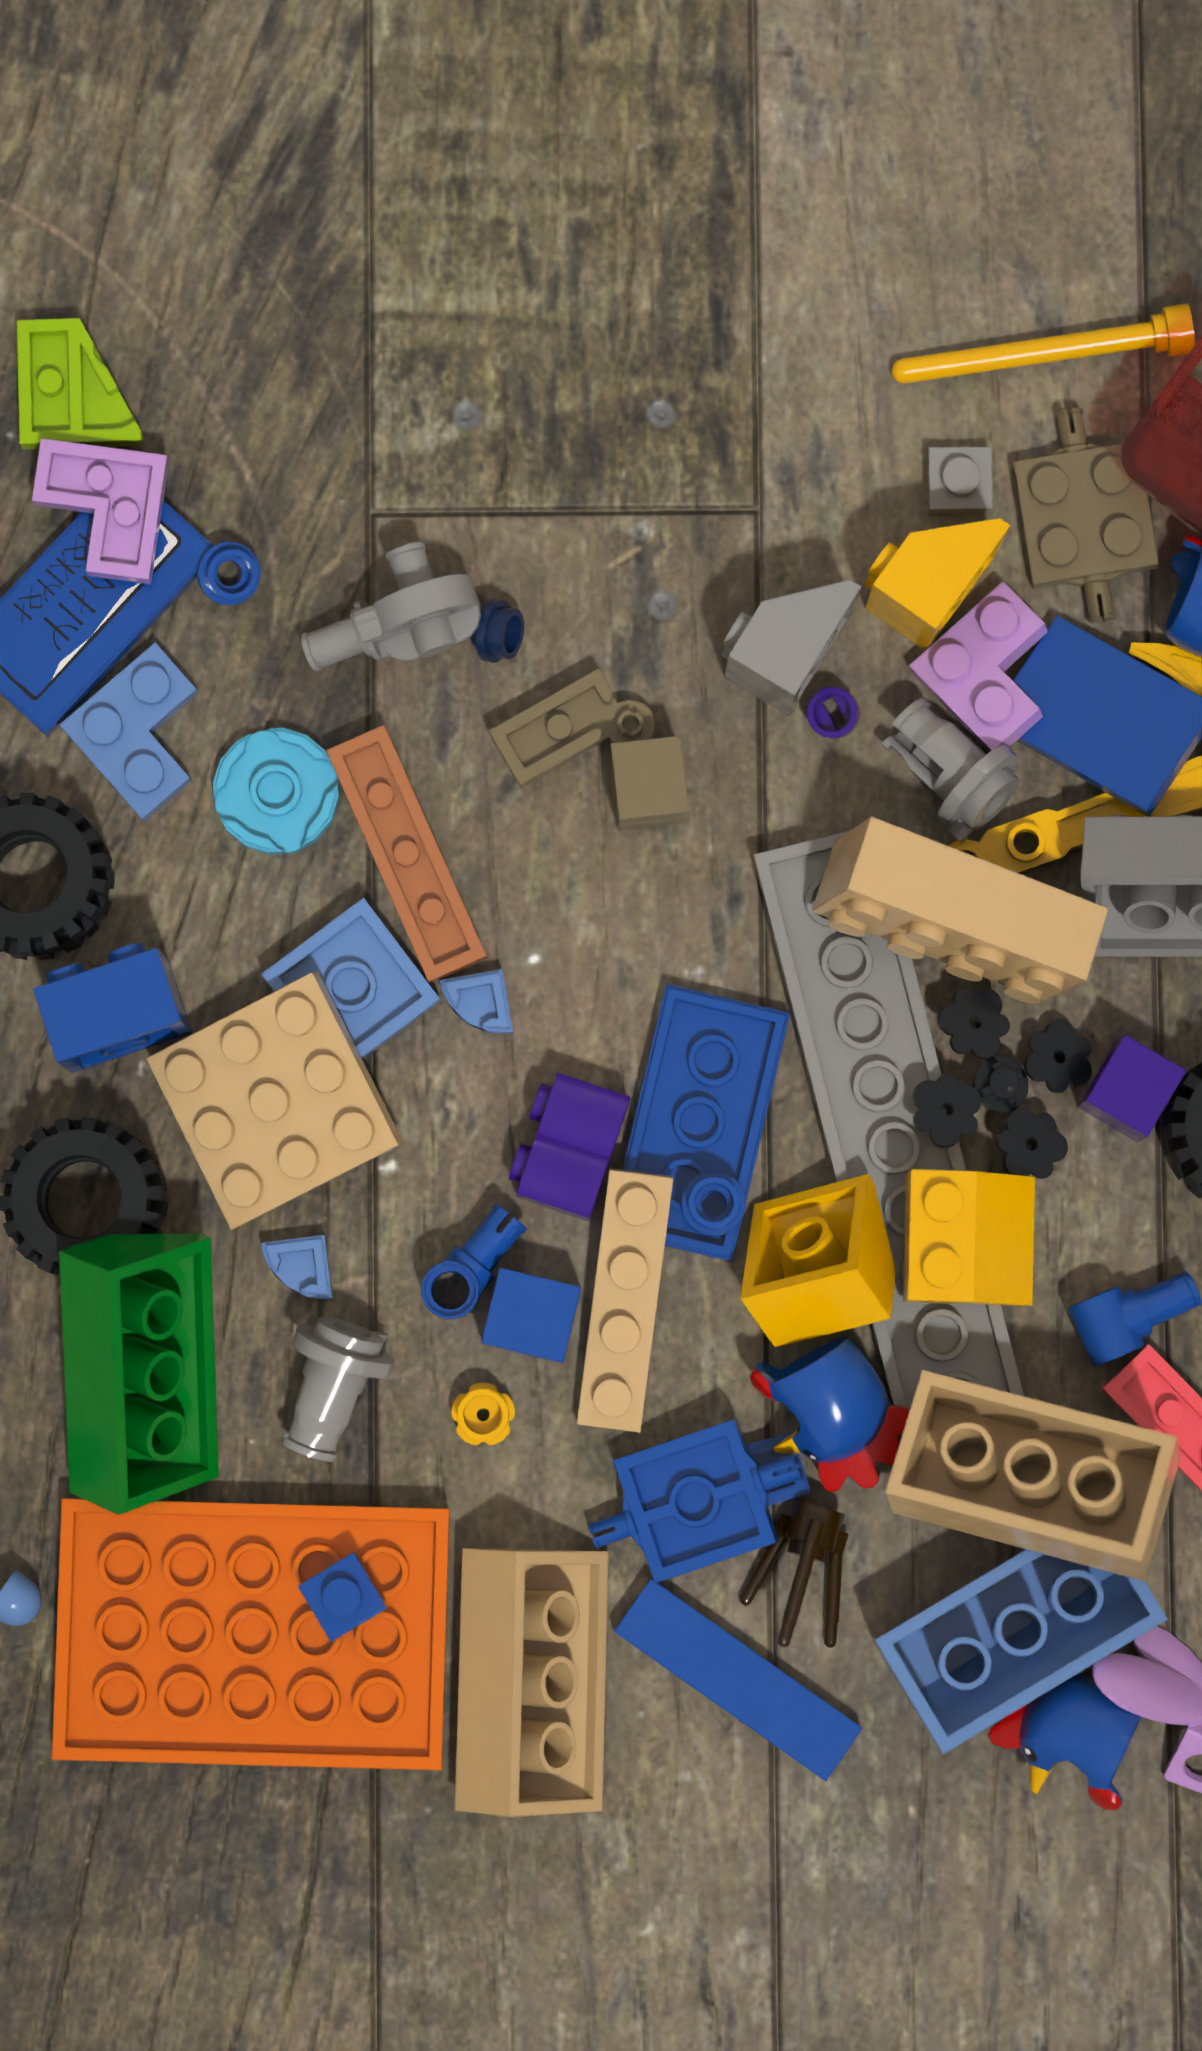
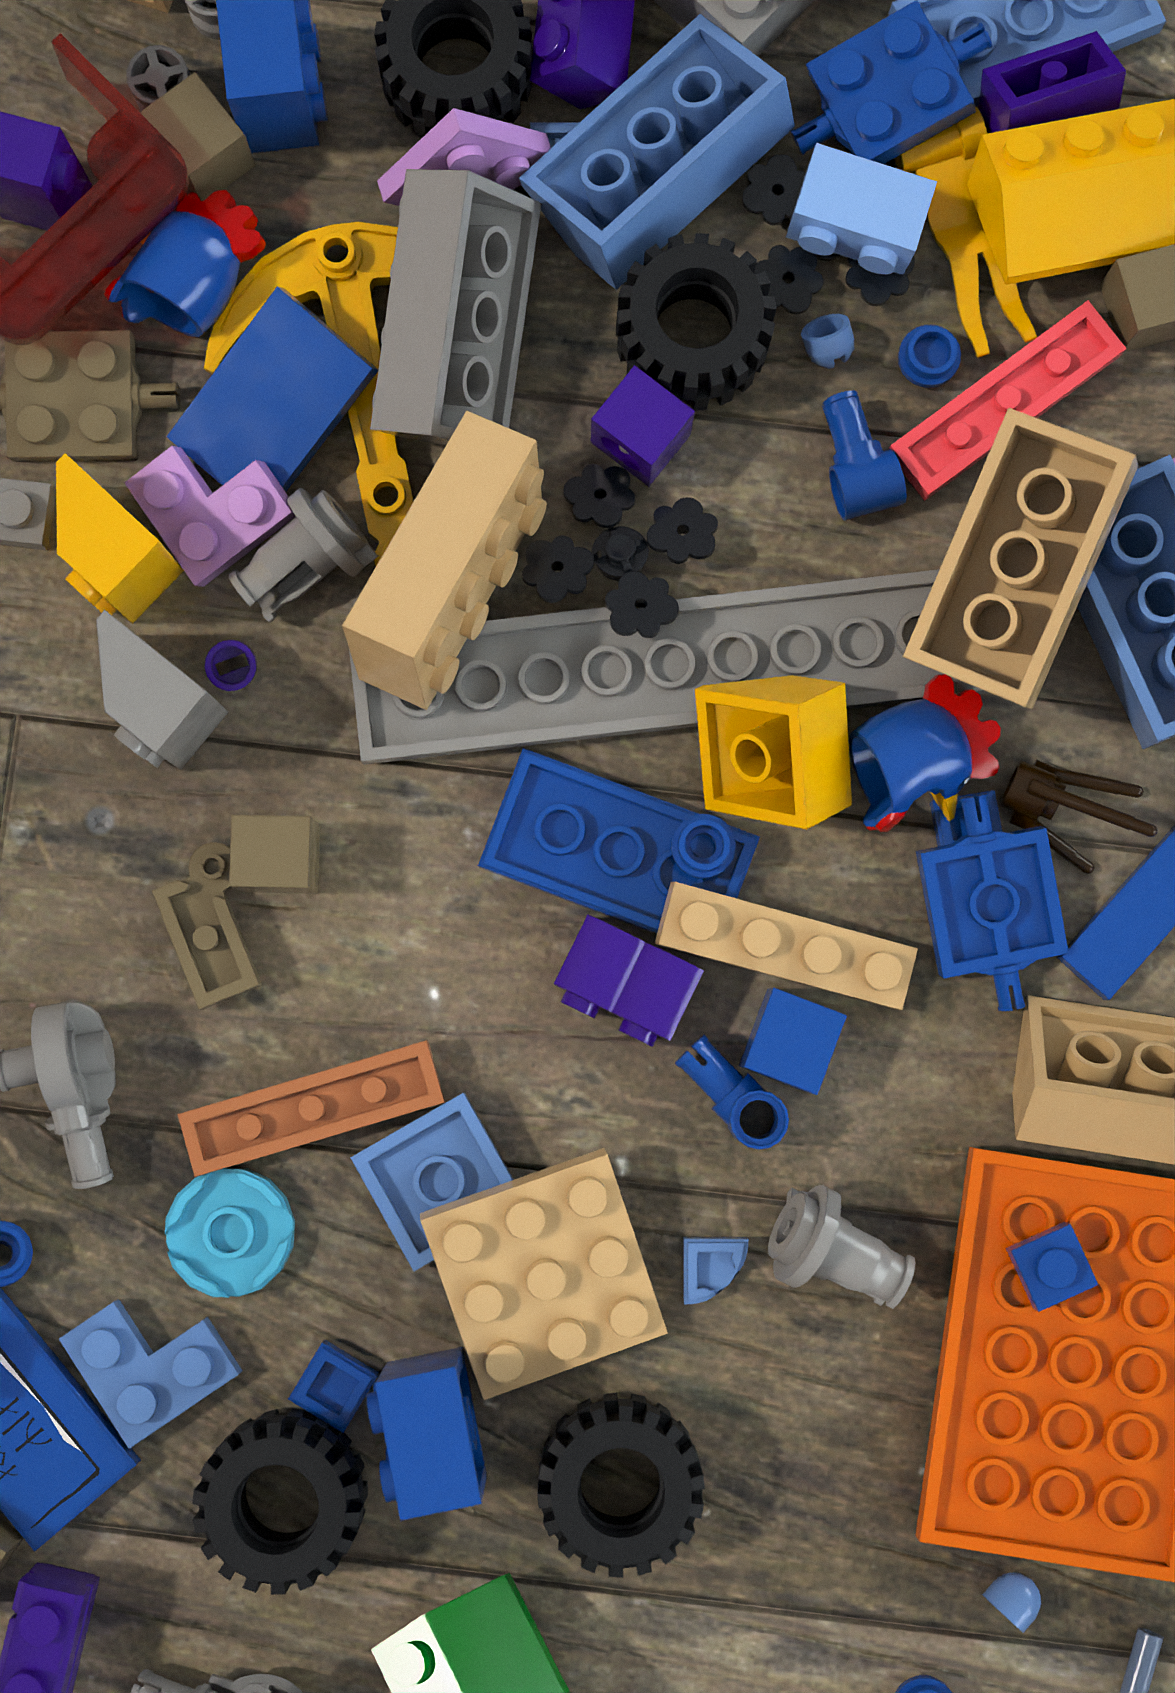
camera: 85 degrees left, 0 degrees up
(139, 1367) = (800, 1450): green slope -> none
(140, 911) = (333, 1386): none -> blue tile
(480, 1001) = (469, 1052): medium blue tile -> none
(495, 1427) = (898, 1099): yellow plate -> none
(498, 632) = (100, 986): dark blue plate -> none
(968, 1238) = (772, 602): yellow slope -> none

